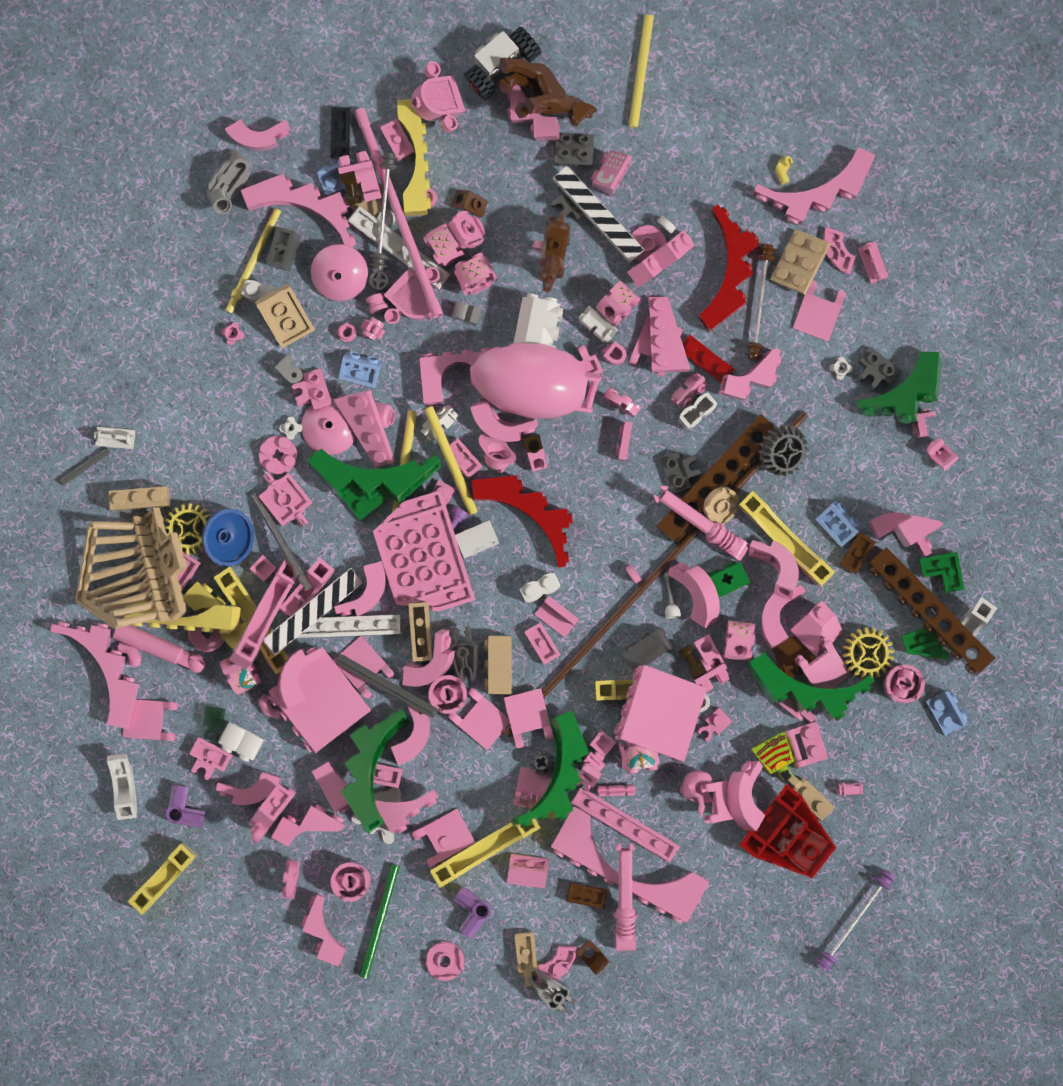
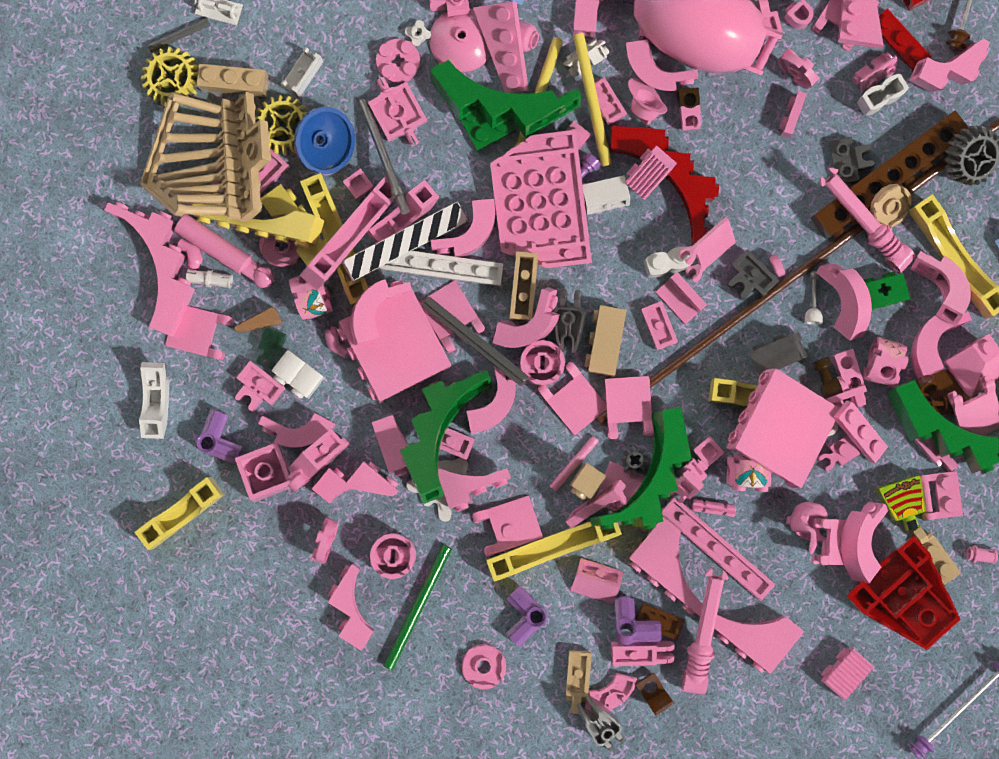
camera: 15 degrees right, 0 degrees up
(91, 498) = (187, 64): none -> light yellow gear
(150, 672) = (209, 278): none -> white pin
(197, 480) = (302, 72): none -> white hinge
(204, 699) = (266, 318): none -> medium nougat slope
(228, 830) = (264, 472): none -> bright pink slope
(491, 773) = (573, 464): none -> bright pink bar
(502, 789) = (586, 481): none -> tan brick
(510, 515) = (650, 172): none -> bright pink brick
(524, 797) = (611, 495): none -> bright pink hinge
(571, 571) = (708, 248): none -> bright pink flag
(571, 906) = (641, 630): none -> medium lavender piece
(576, 925) = (642, 653): none -> bright pink hinge
(613, 586) = (752, 276): none -> dark grey plate
(728, 703) = (860, 431): none -> bright pink plate
(752, 910) = (846, 672): none -> bright pink brick
(777, 654) = (927, 385): none -> reddish brown tile

